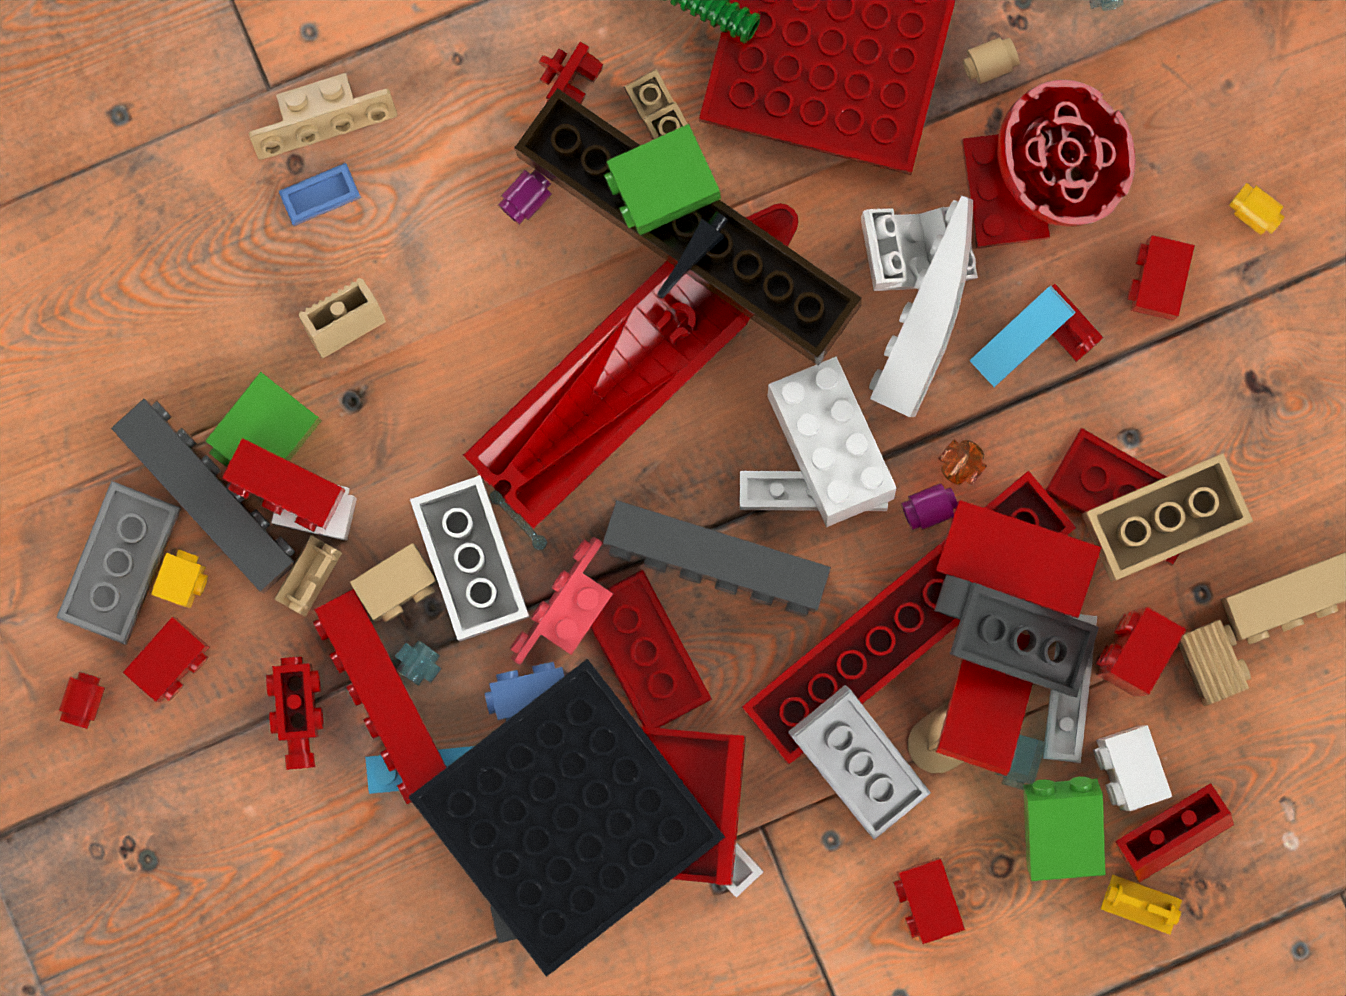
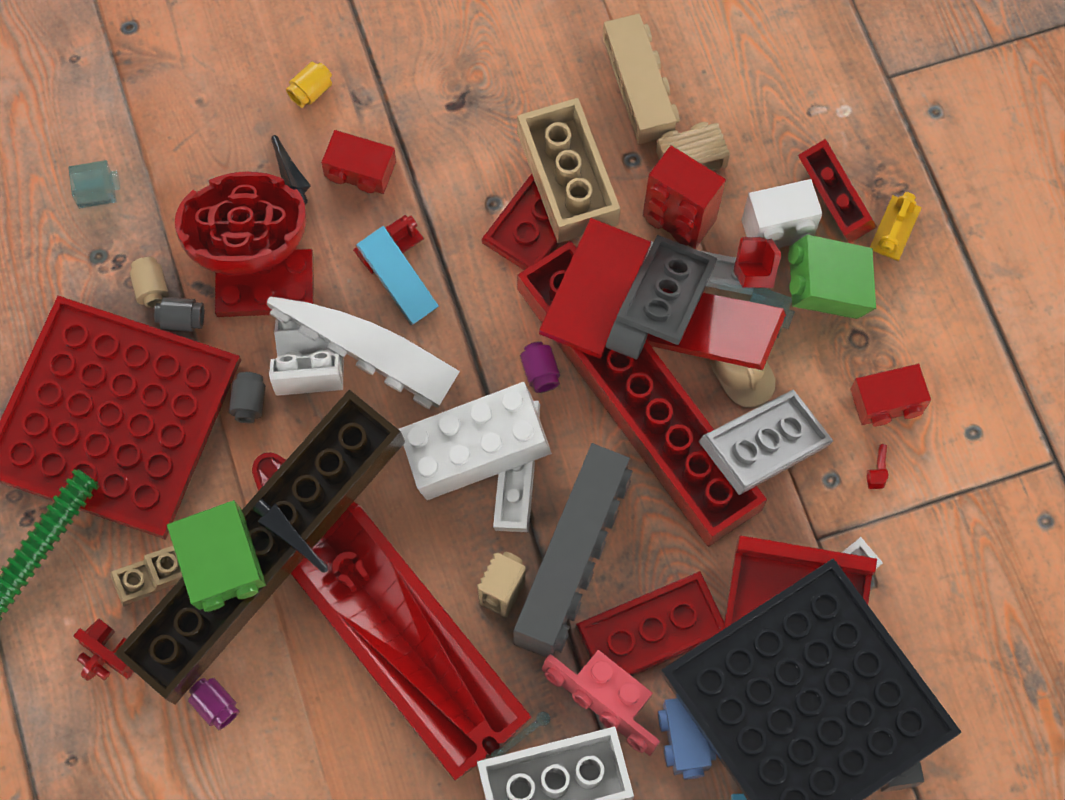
camera: 85 degrees left, 15 degrees down
(674, 485) = (501, 583): none -> tan brick
(835, 891) = (877, 477): none -> red hand
(864, 187) = (247, 397): none -> dark grey brick
(955, 100) = (179, 314): none -> dark grey brick
(962, 462) = (503, 335): clear orange gear -> none
(1070, 741) = (757, 262): none -> red panel
(1138, 202) = (289, 172): none -> black piece

